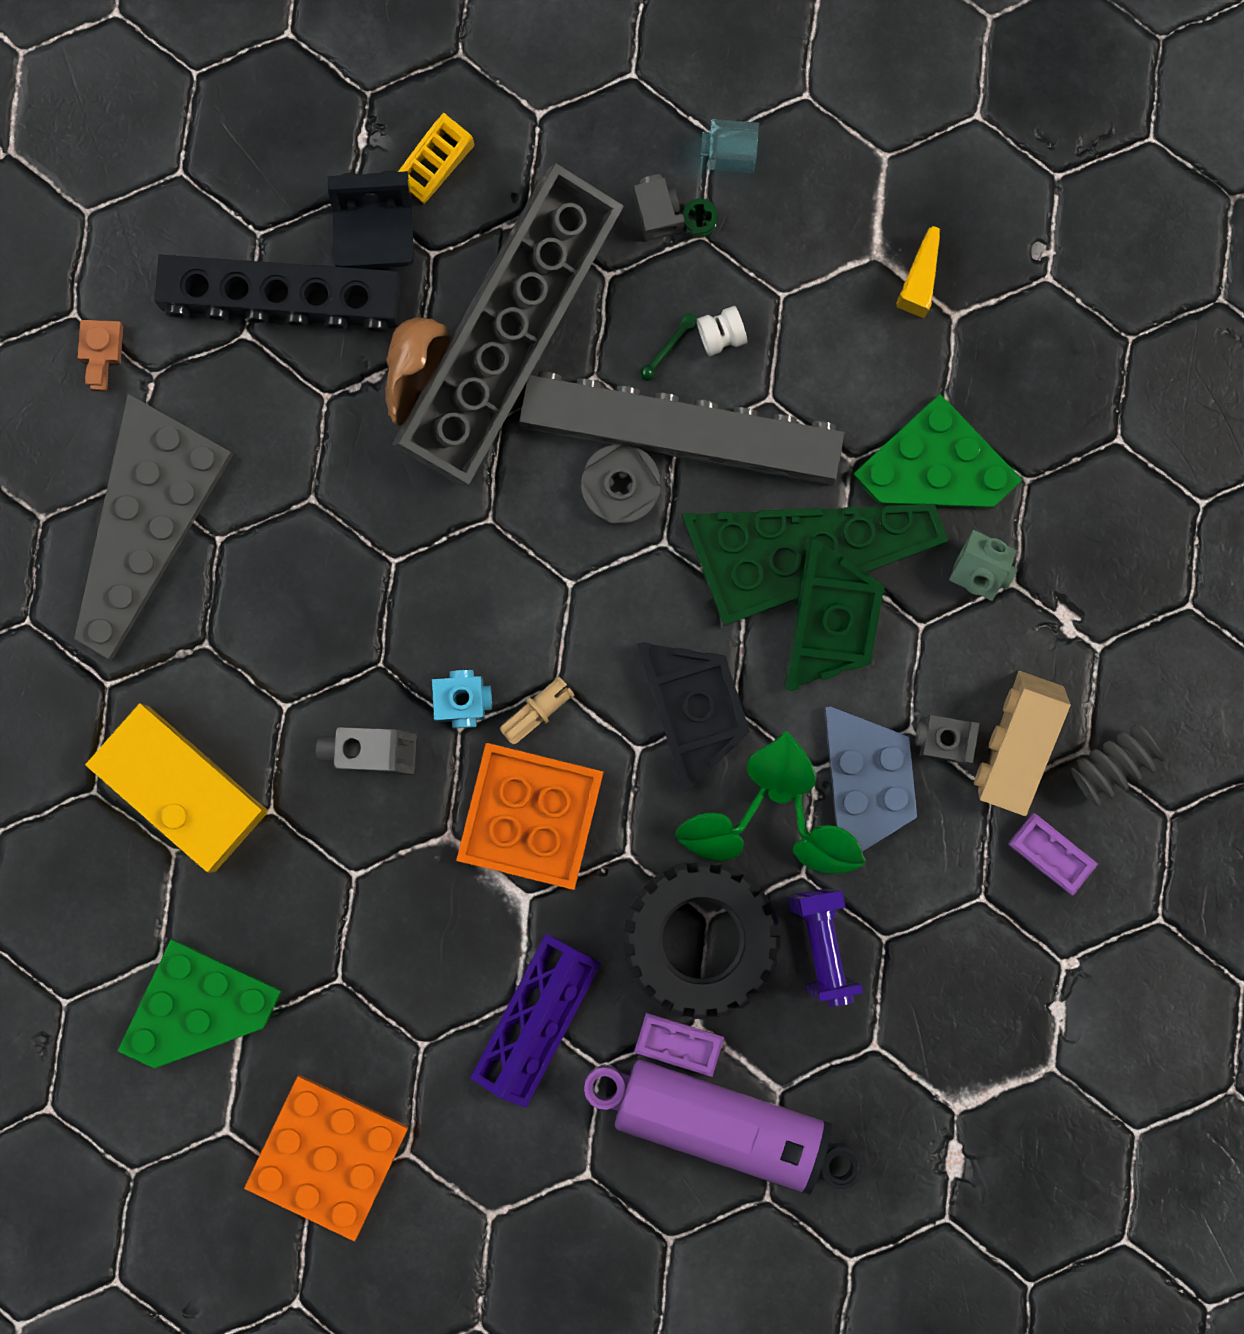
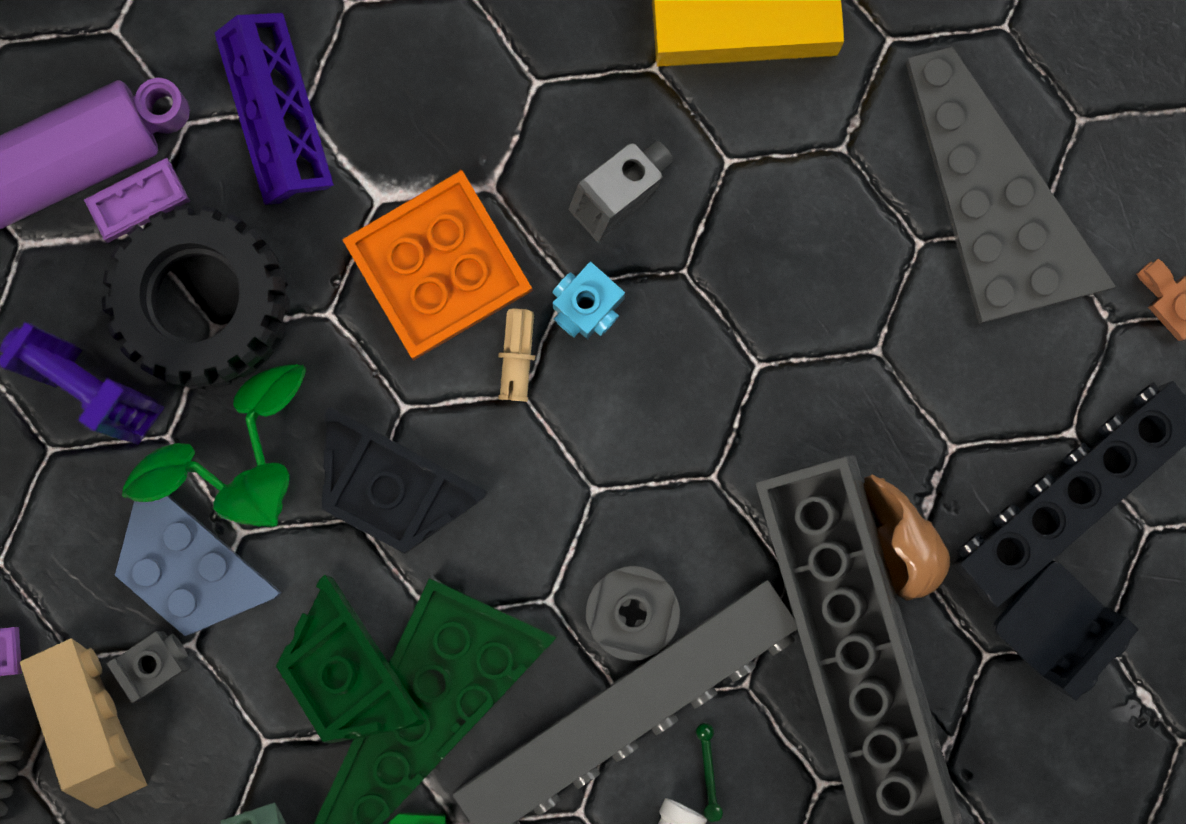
camera: 140 degrees right, 0 degrees up
(456, 154) = (1051, 758): yellow slope -> none

